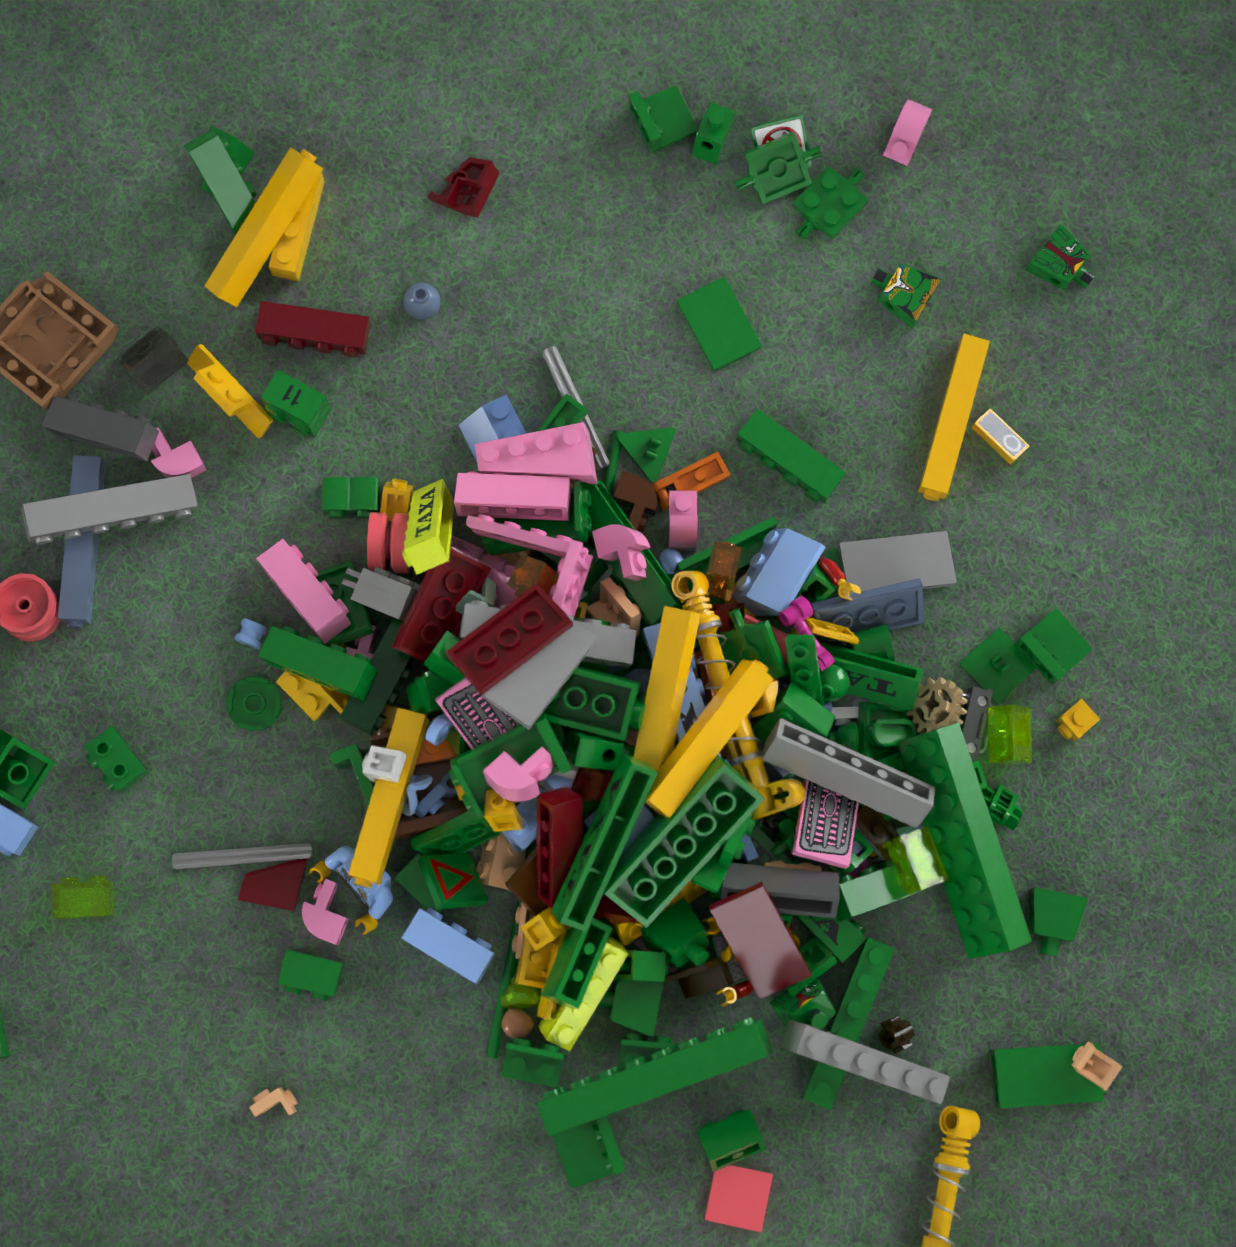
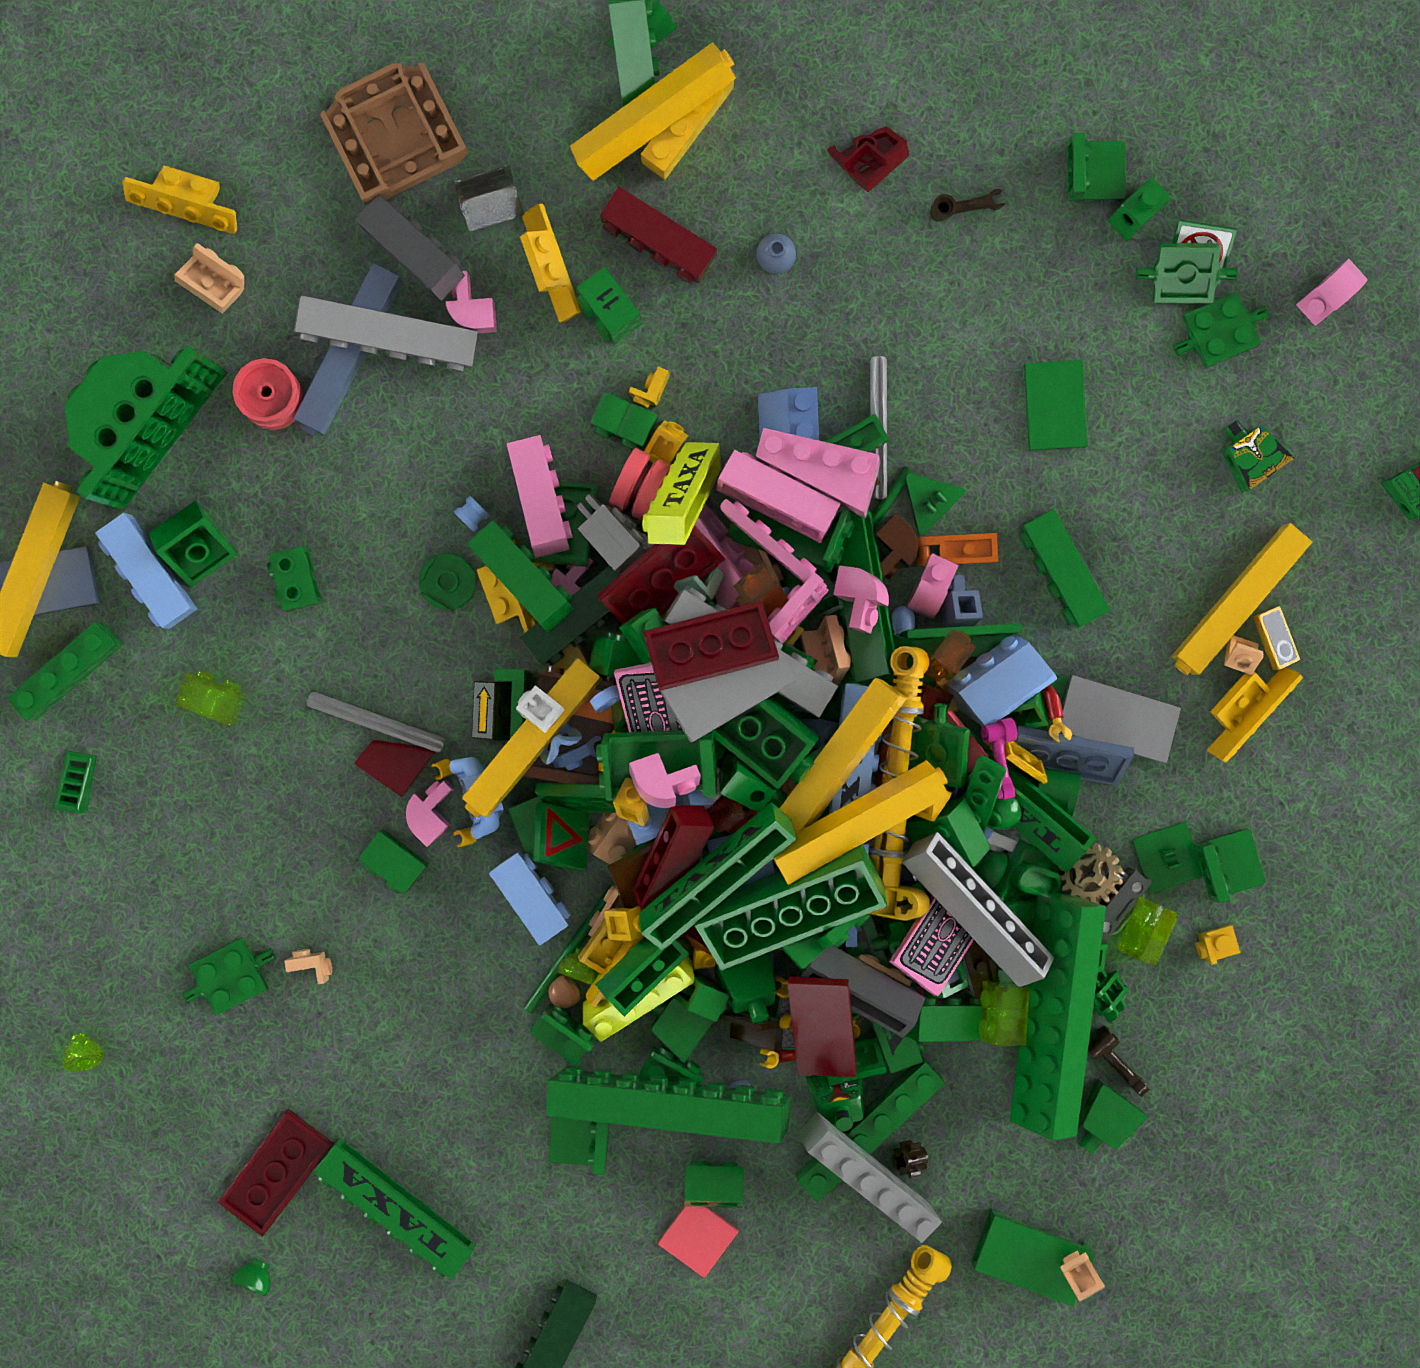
camera: 20 degrees right, 10 degrees up
(203, 1148) = (228, 976): none -> green plate
(342, 798) = (491, 710): none -> panel
(365, 454) = (655, 384): none -> yellow bracket
(554, 199) = (952, 207): none -> dark brown brick
(714, 524) = (960, 606): none -> sand blue brick
(977, 462) = (1242, 655): none -> light nougat bracket
(1002, 505) = (1248, 707): none -> yellow bracket
(1020, 856) = (1103, 1046): none -> dark brown brick

